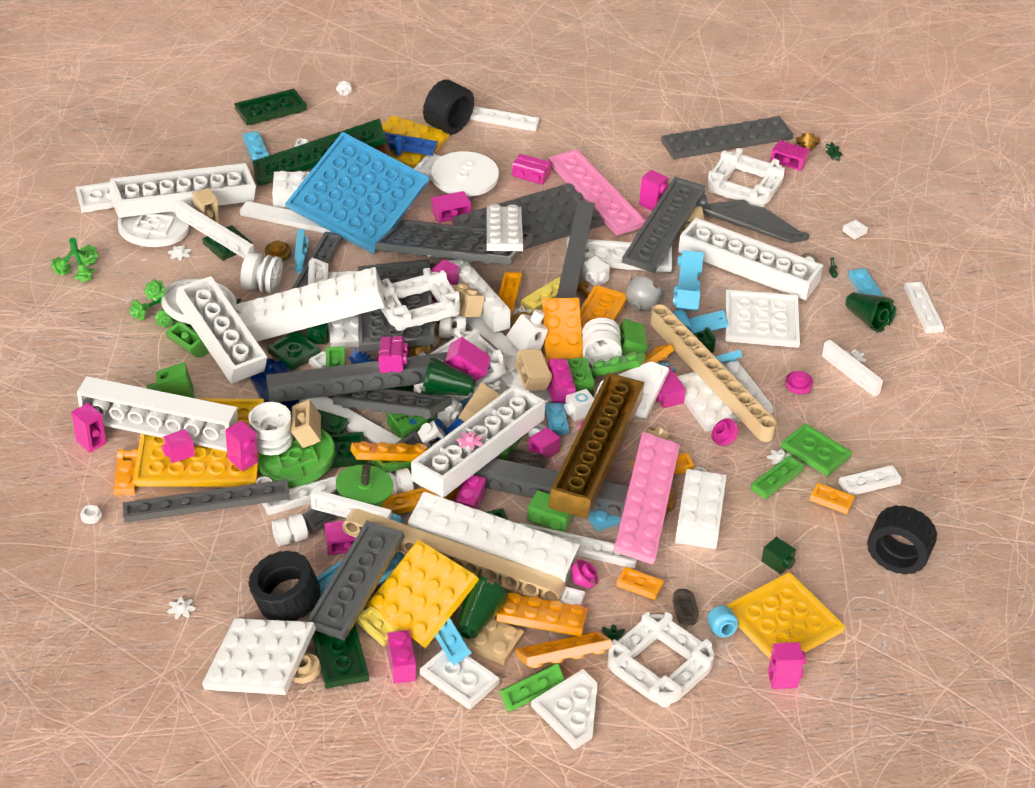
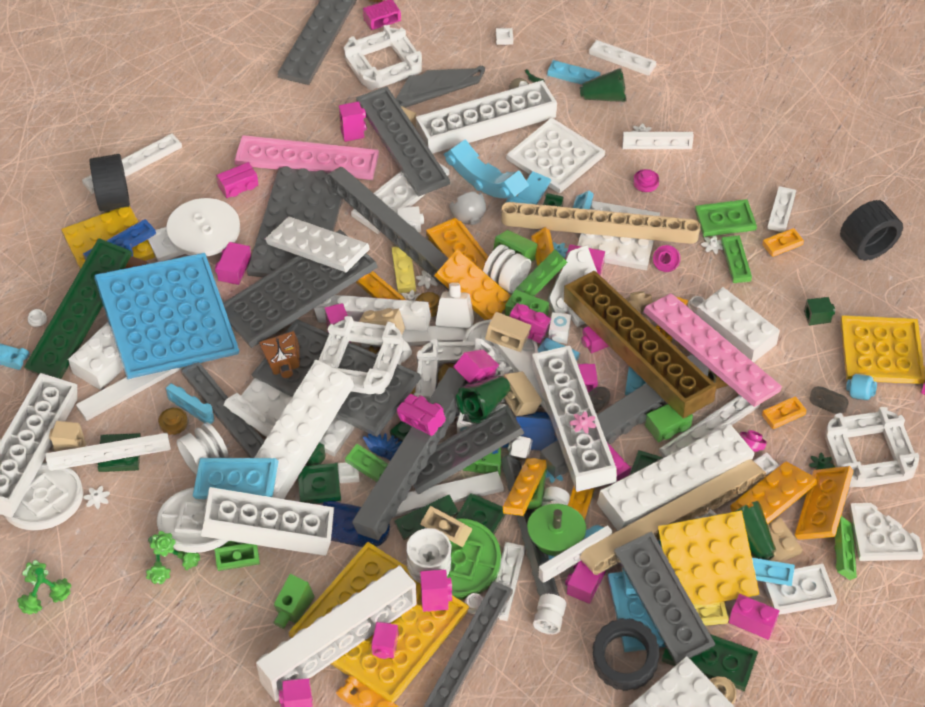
camera: 50 degrees left, 10 degrees up
(244, 294) = (236, 474): none -> medium azure plate
(387, 263) = (282, 353): none -> dark orange torso

